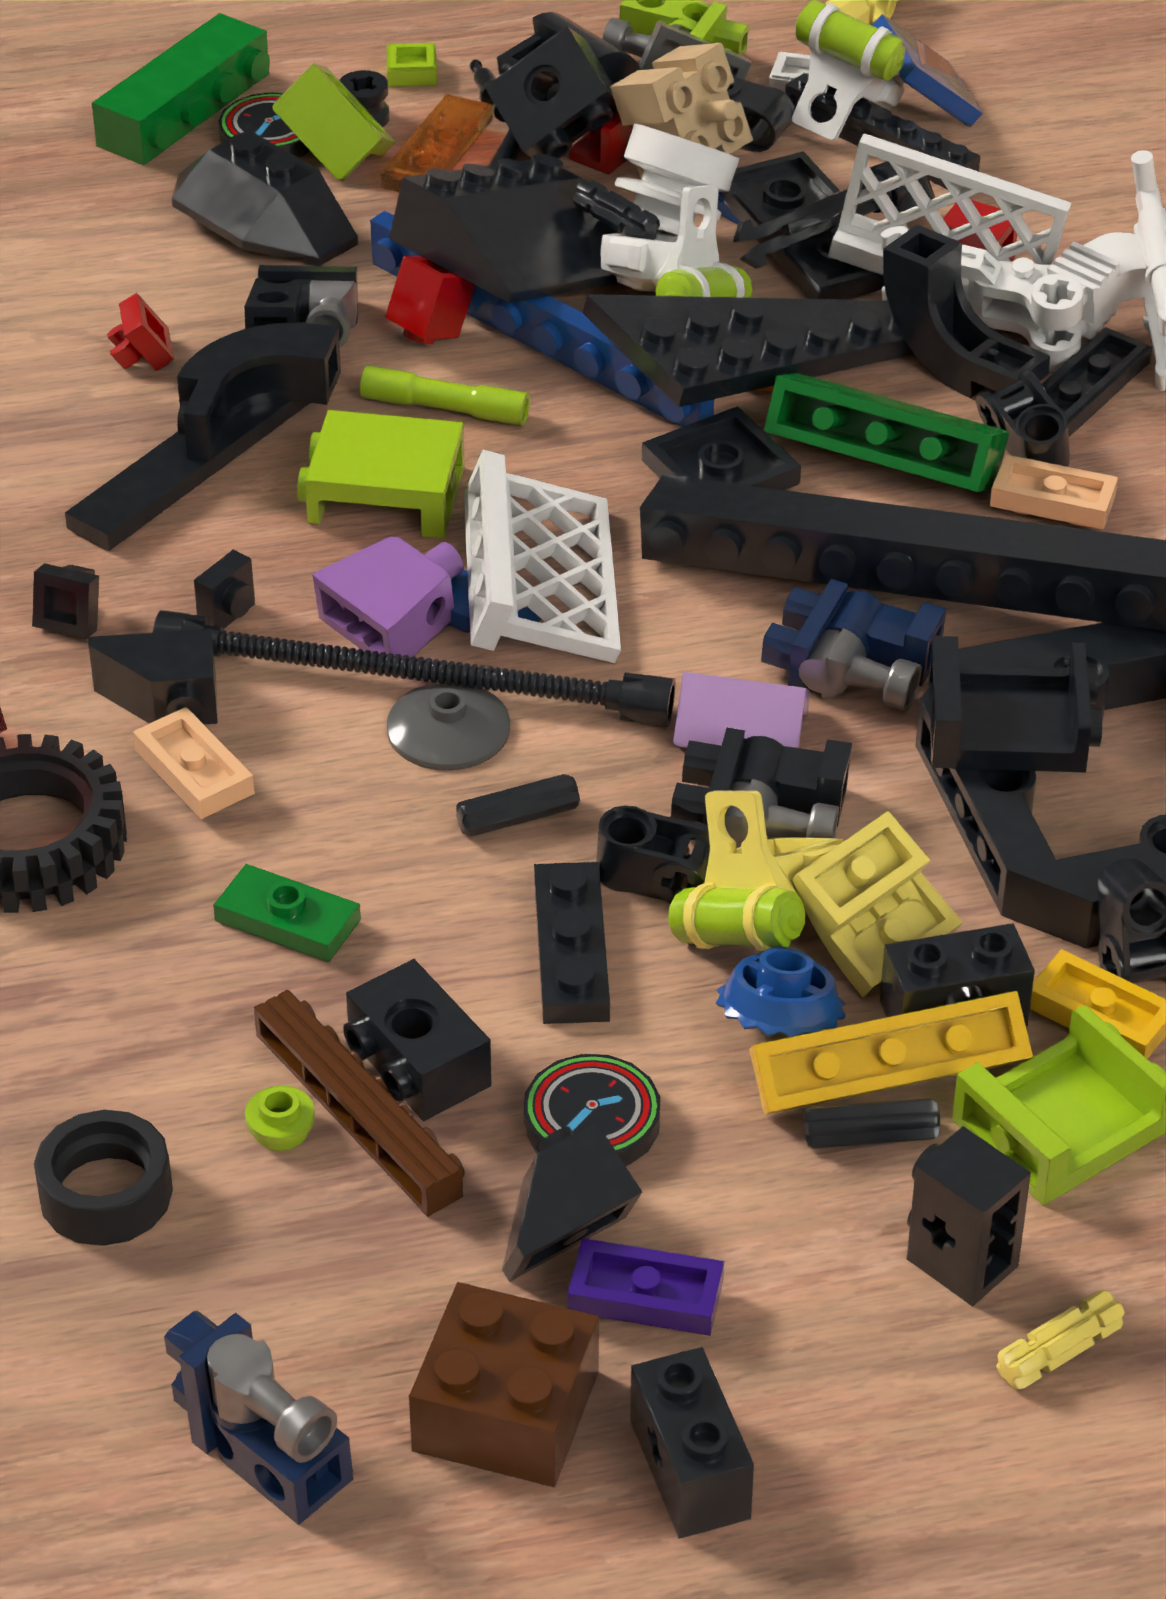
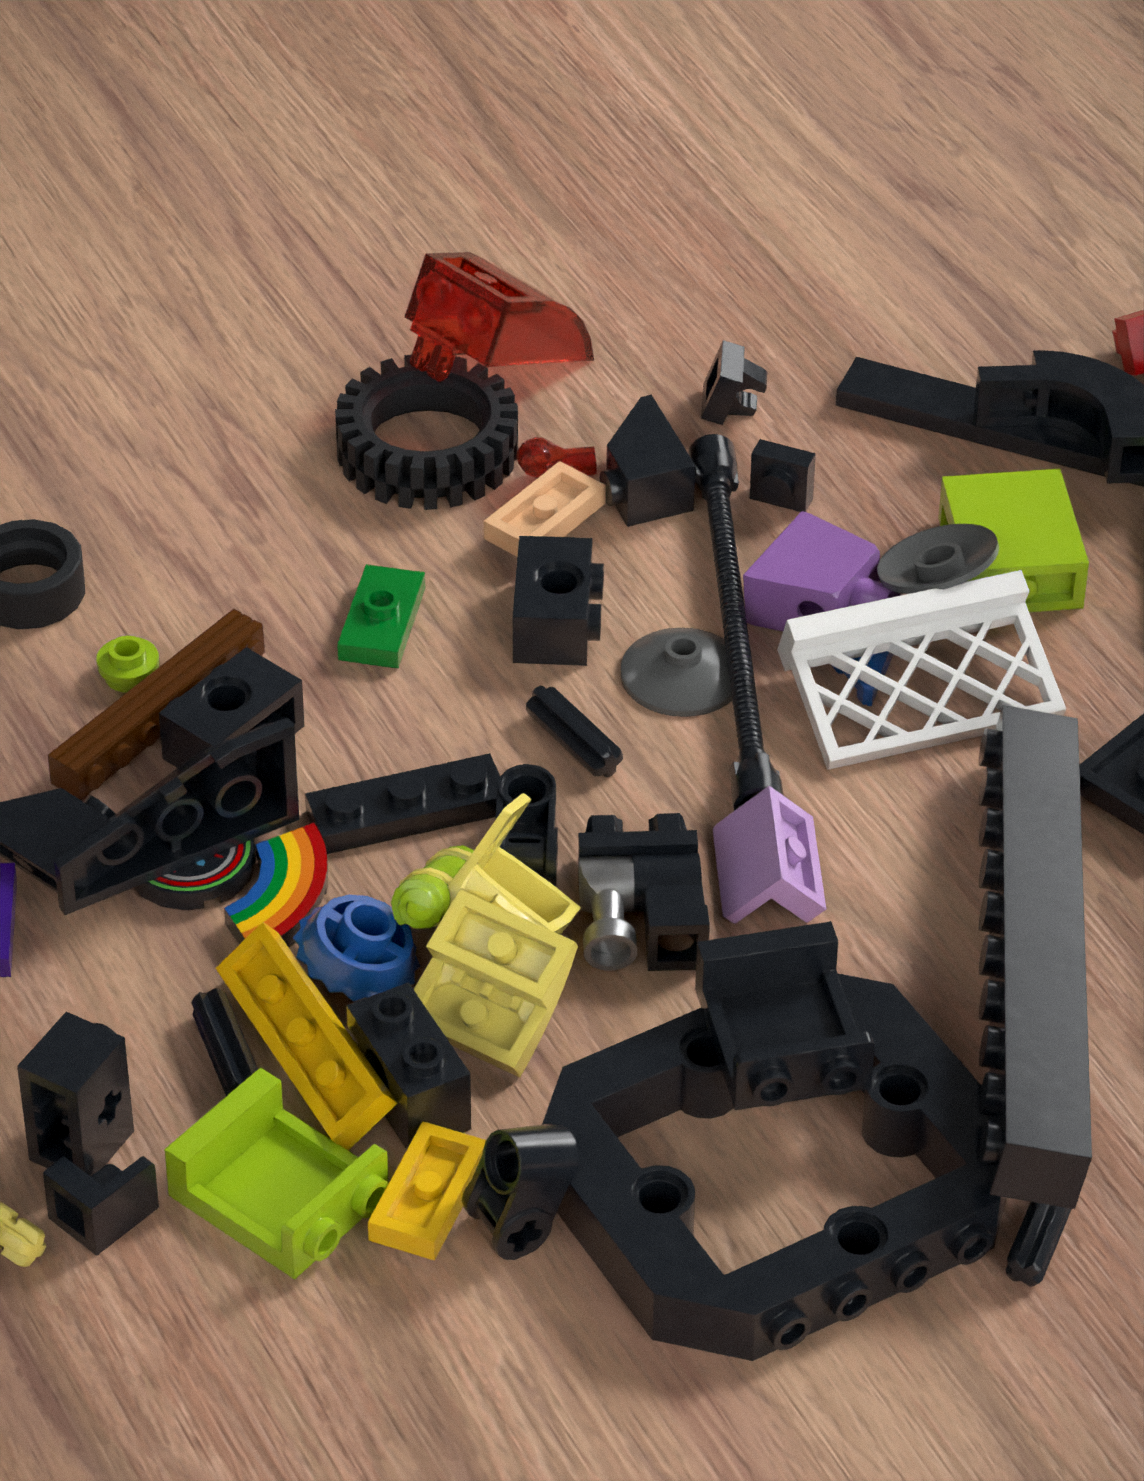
camera: 75 degrees right, 0 degrees up
(117, 738) = (540, 454): none -> clear red arm
(336, 777) = (554, 599): none -> black brick
(433, 499) = (938, 558): none -> dark grey dish
(571, 1058) = (191, 814): none -> black wedge
(674, 1049) = (288, 885): none -> tile
(854, 642) = (902, 907): dark blue hips -> none
(1068, 1242) = (103, 1205): none -> black panel

